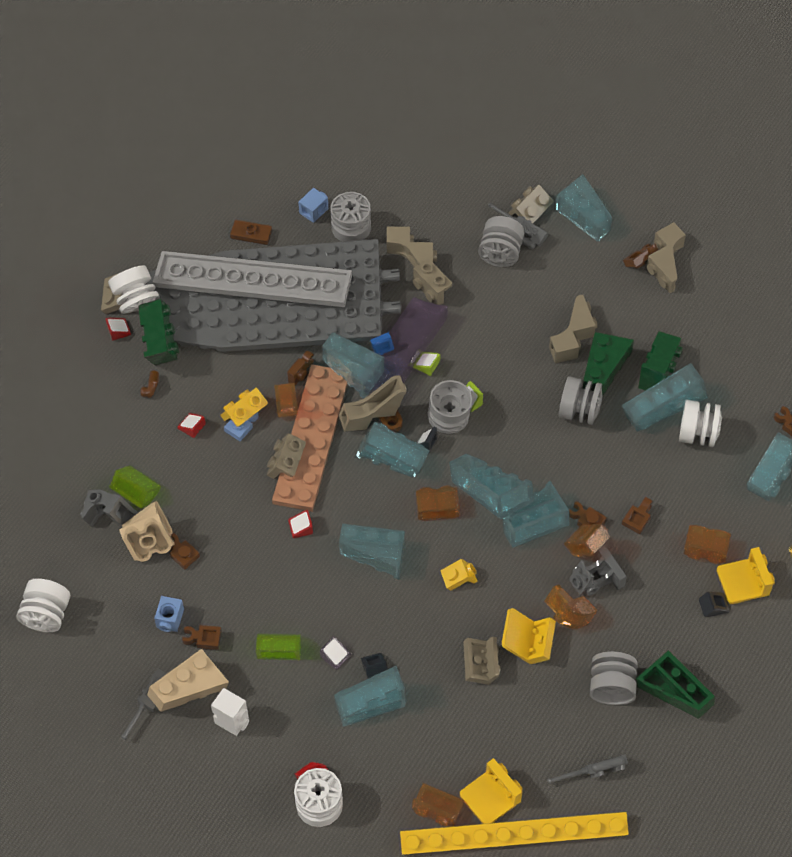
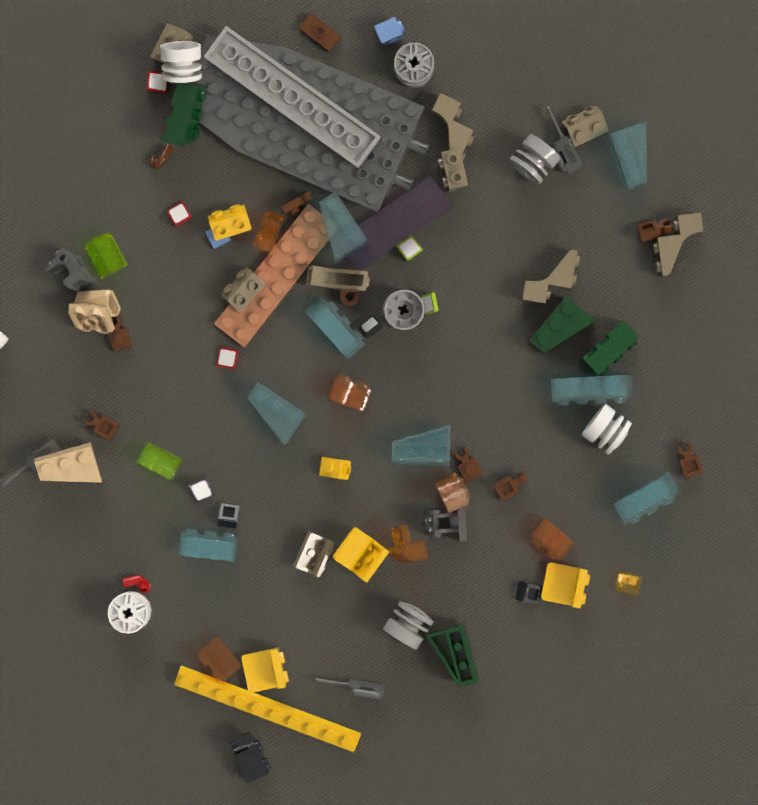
camera: 20 degrees right, 30 degrees up
(169, 606) = (90, 388): medium blue brick -> none
(230, 712) = (92, 508): white brick -> none
(382, 344) = (376, 218): blue tile -> none
(490, 486) = (398, 413): clear light blue wedge -> none
(580, 400) = (518, 358): light grey wheel -> none

